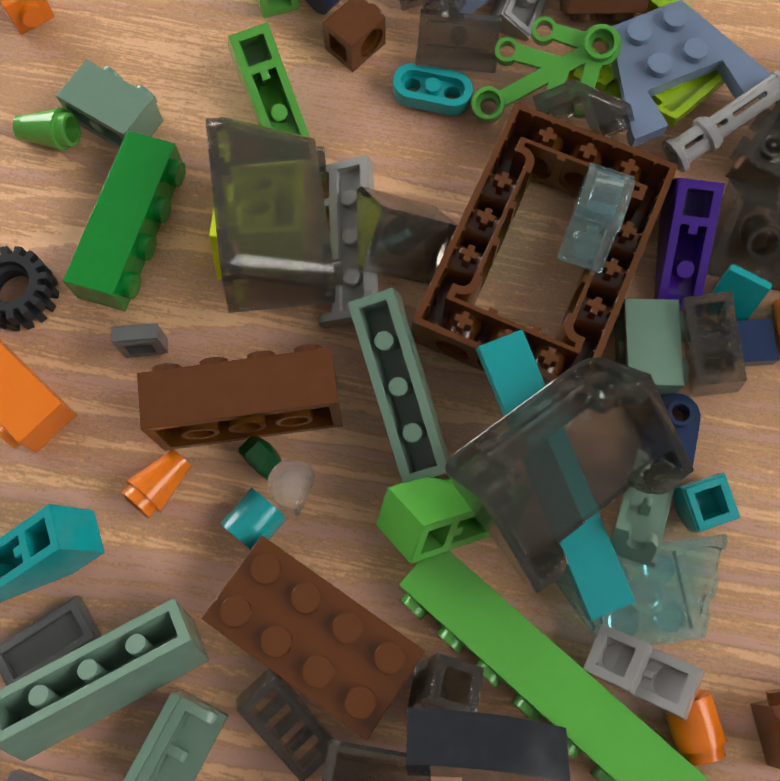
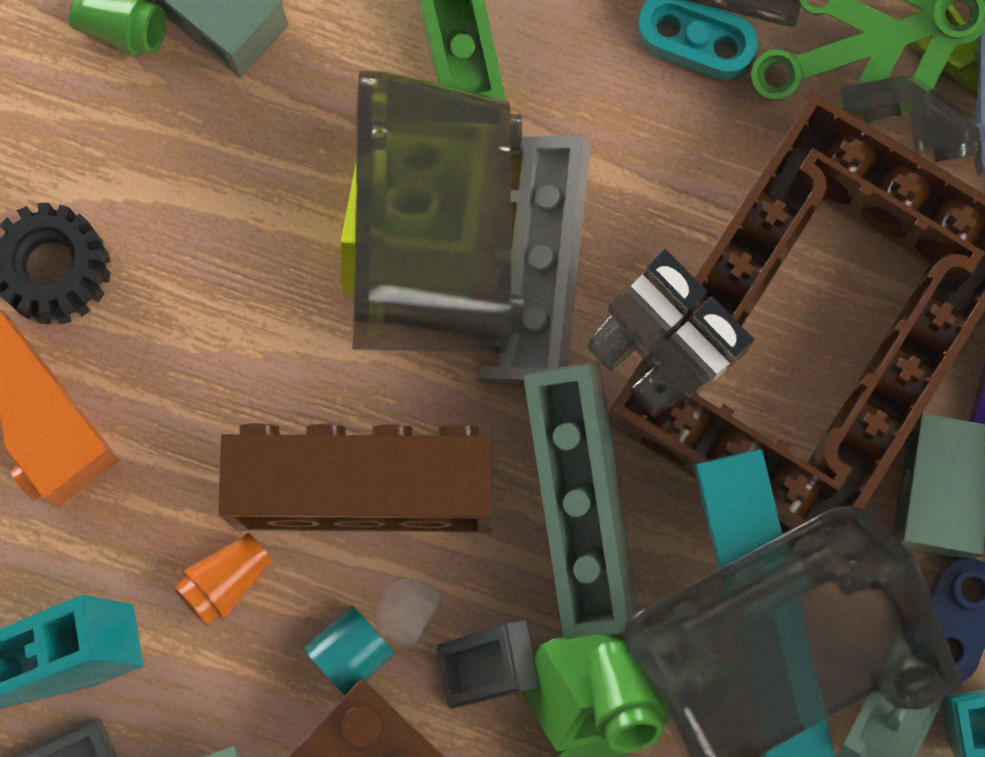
camera: 10 degrees right, 5 degrees up
(126, 221) = (221, 184): green brick -> none
(139, 340) = (221, 369): dark grey tile -> none
(260, 455) = (372, 563): dark green tile -> none
(352, 512) = (488, 665): none -> dark grey tile
(400, 235) = (603, 252): clear smoke slope -> none
(447, 261) = (652, 312): none -> clear smoke hips
(454, 516) = (623, 700): none -> bright green cone
(596, 217) = (897, 296): clear light blue brick -> none

